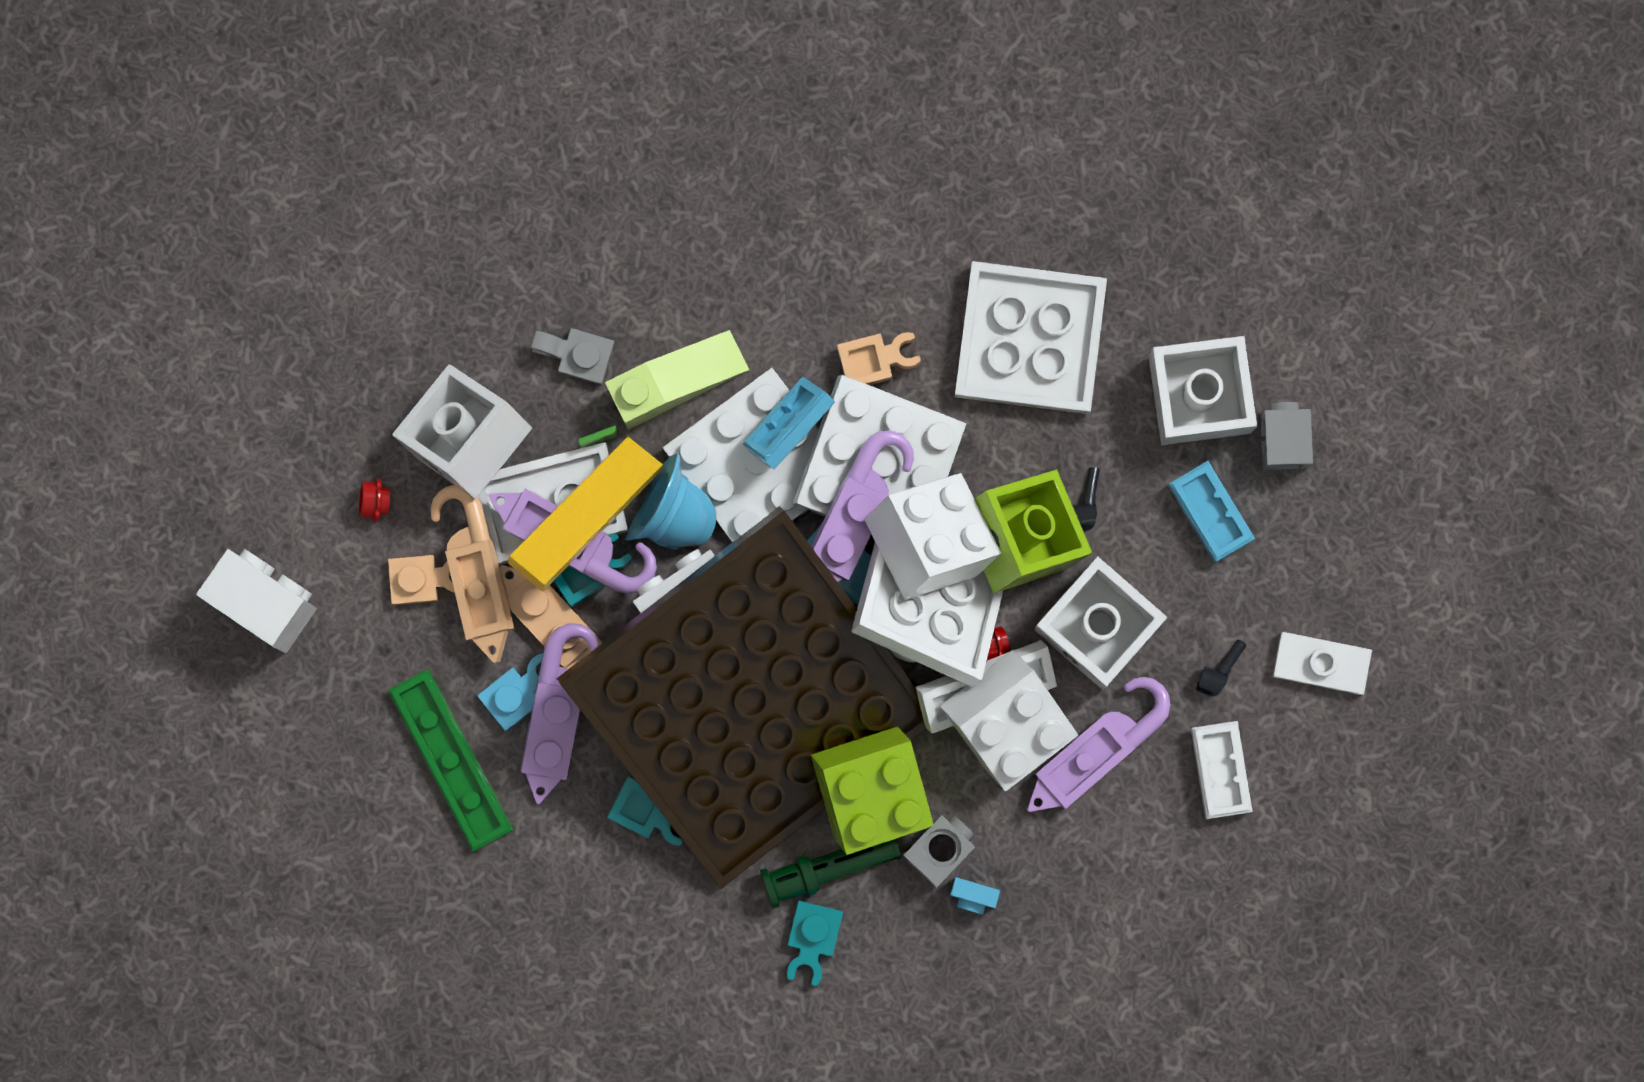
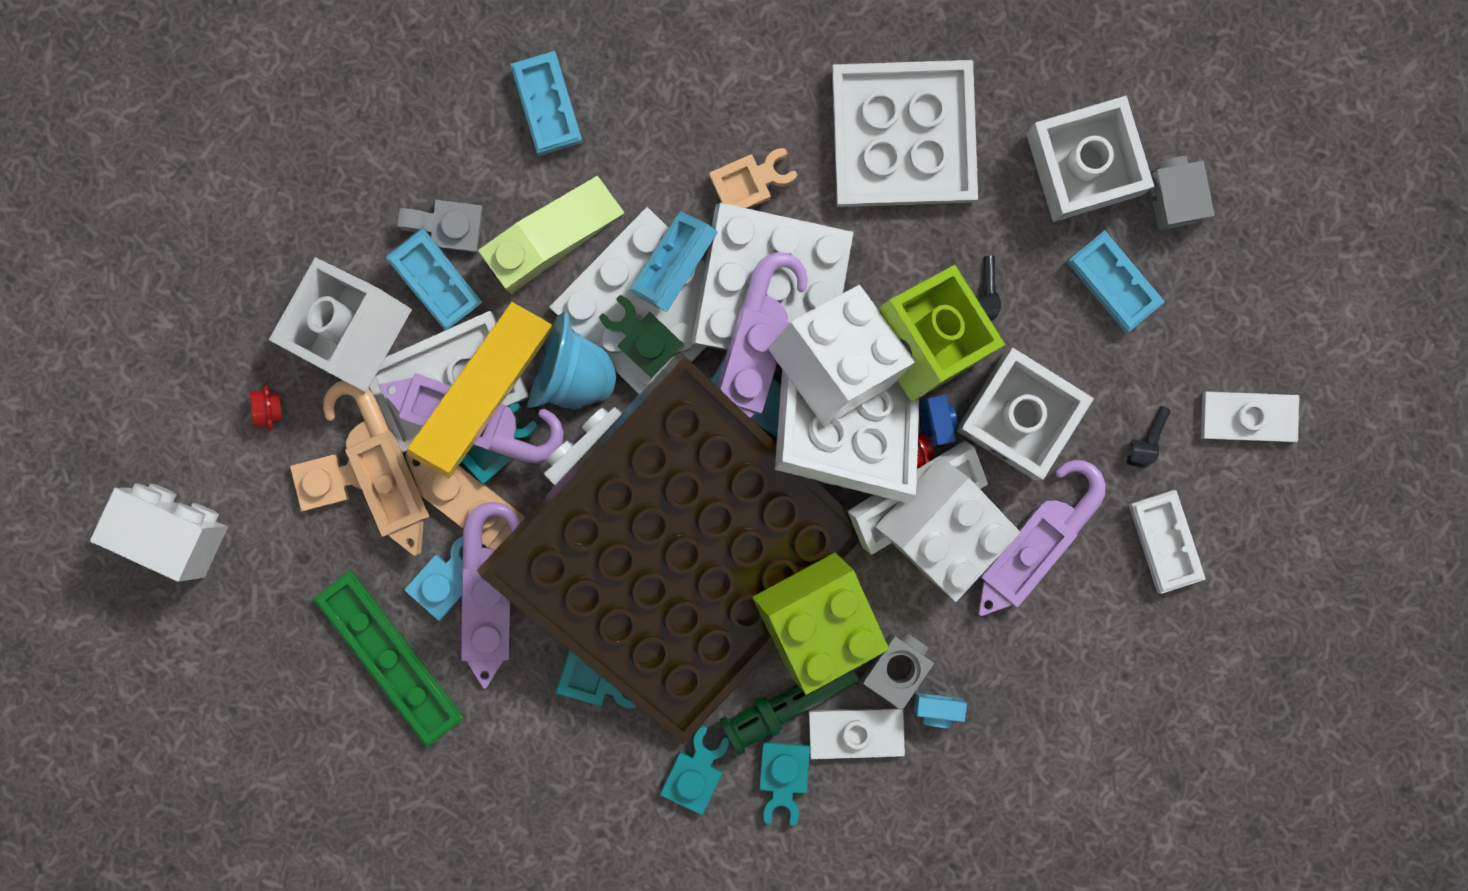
camera: 15 degrees left, 5 degrees up
(556, 402) = (433, 279): none -> medium azure plate
(599, 437) = (482, 307): bright green piece -> none
(692, 253) = (546, 103): none -> medium azure plate
(724, 924) = (693, 776): none -> teal plate
(750, 495) = (646, 341): none -> dark green plate
(890, 907) = (856, 733): none -> white plate
(1017, 616) = (938, 420): none -> blue plate

